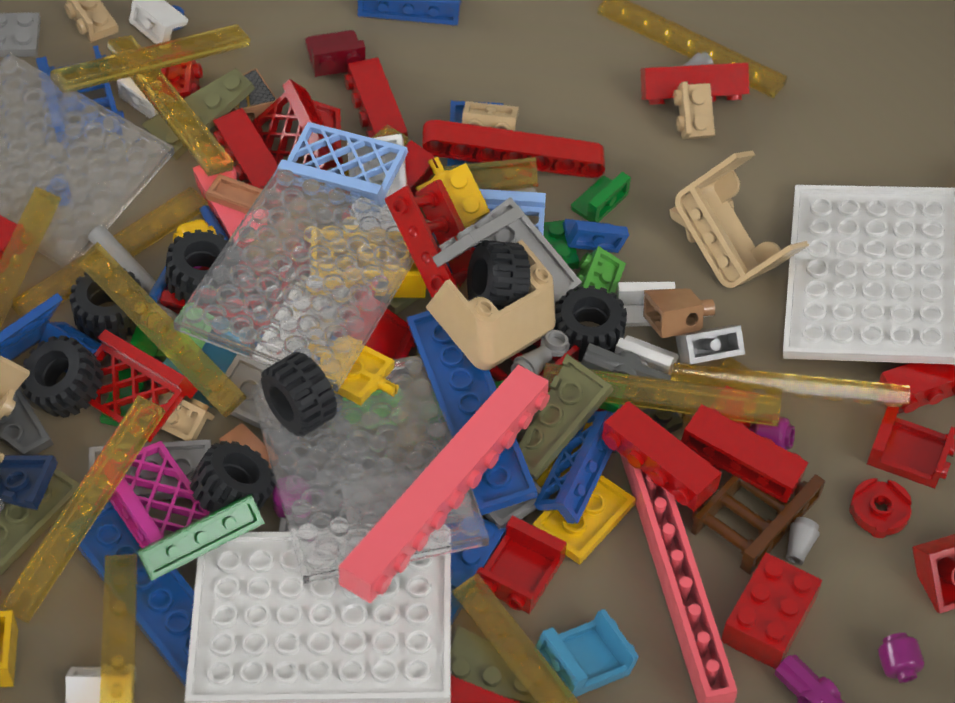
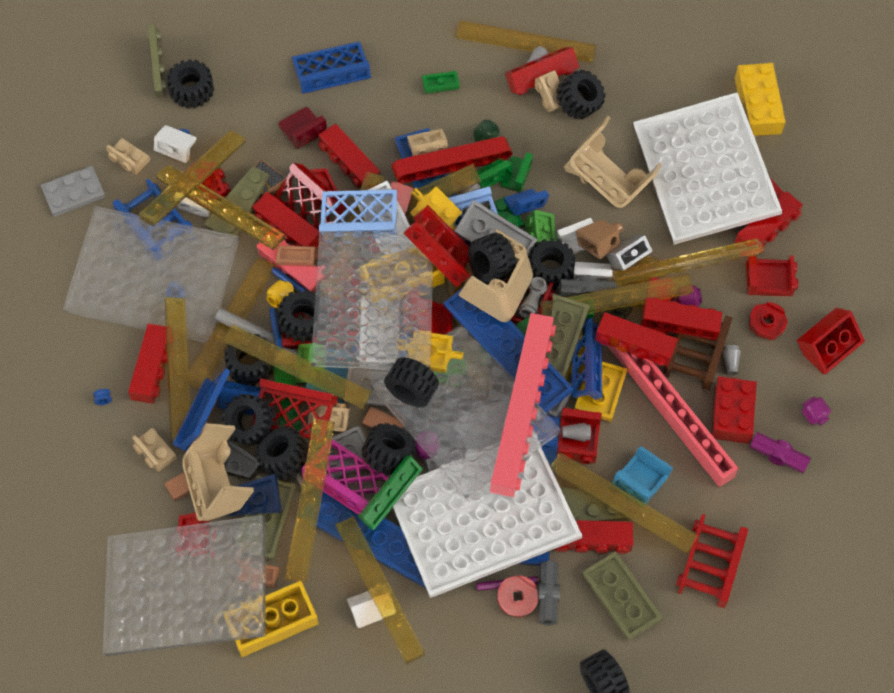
camera: 20 degrees left, 10 degrees up
(80, 433) = (282, 452): none -> black tyre
(476, 234) = (471, 236): light grey plate -> none
(519, 557) = (577, 432): none -> light grey cone
(548, 56) = (440, 82): none -> green plate
(566, 187) = (494, 173): none -> green panel
(581, 128) = (486, 130): none -> clear green head
(747, 115) = (590, 89): none -> black tyre

